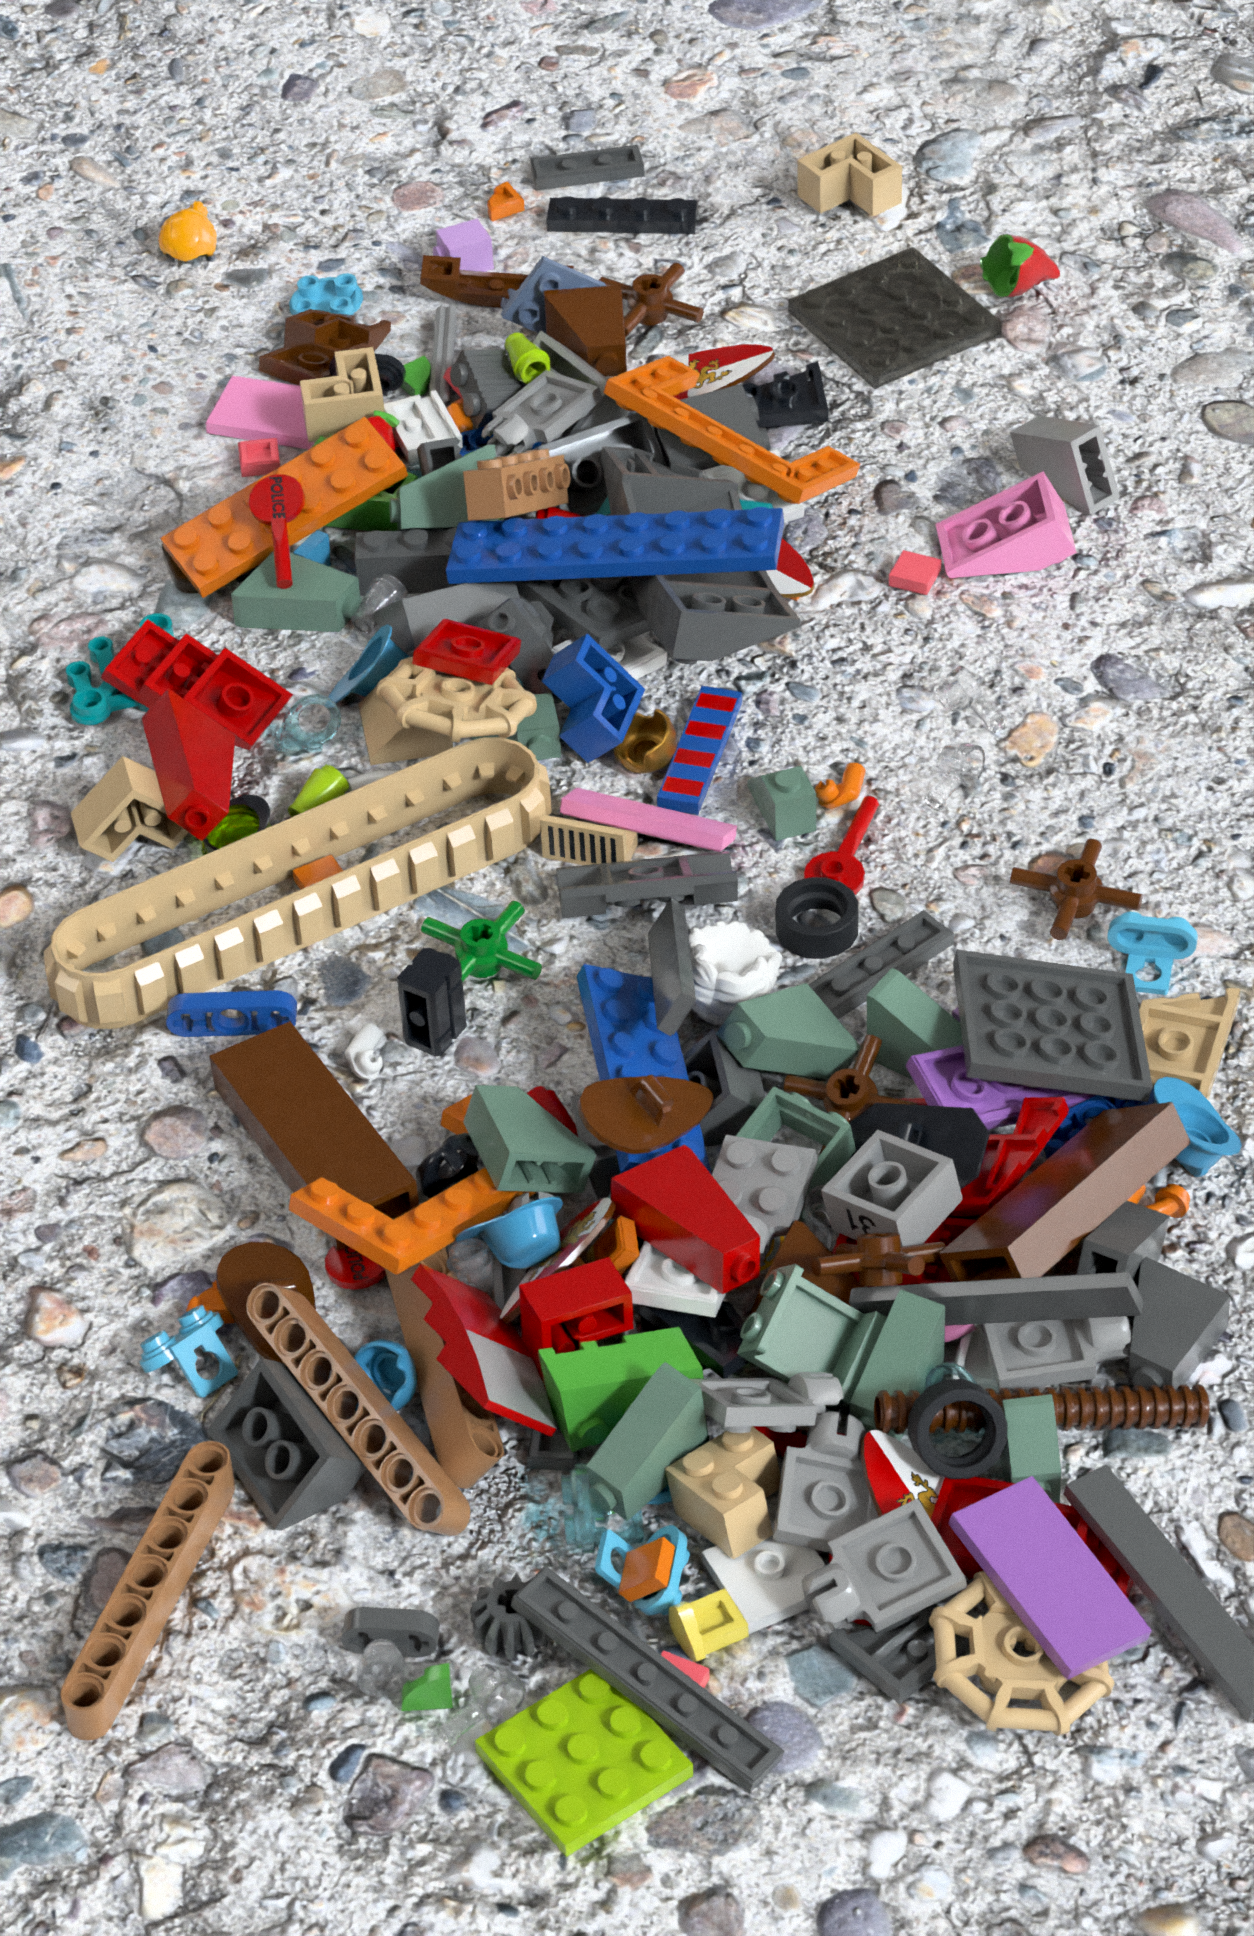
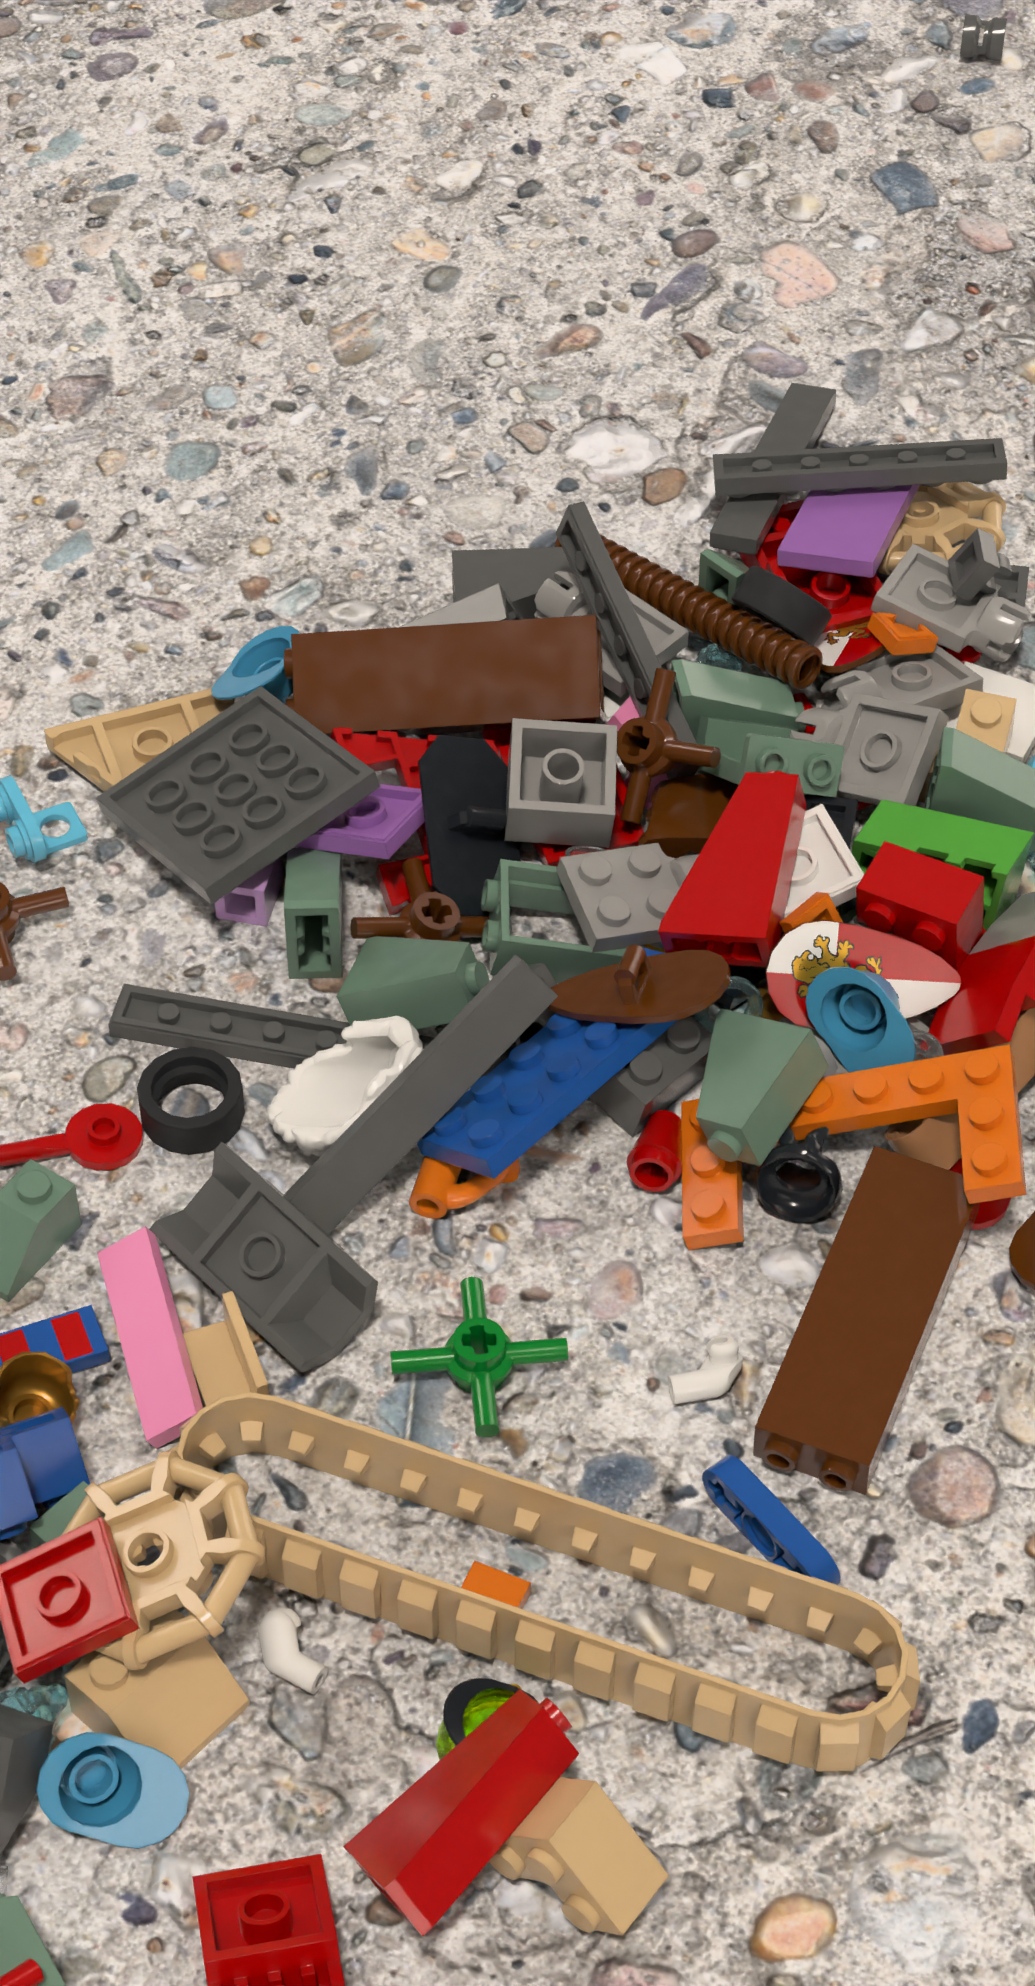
camera: 130 degrees left, 5 degrees up
(293, 738) = (283, 1798): clear light blue piece -> none
(320, 788) = (363, 1695): lime cone -> none
(432, 1001) = (612, 1314): black brick -> none
(870, 1502) = (901, 638): none -> orange tile
(885, 1586) = (976, 564): none -> dark grey tile
(1083, 1595) = (859, 467): none -> dark grey plate

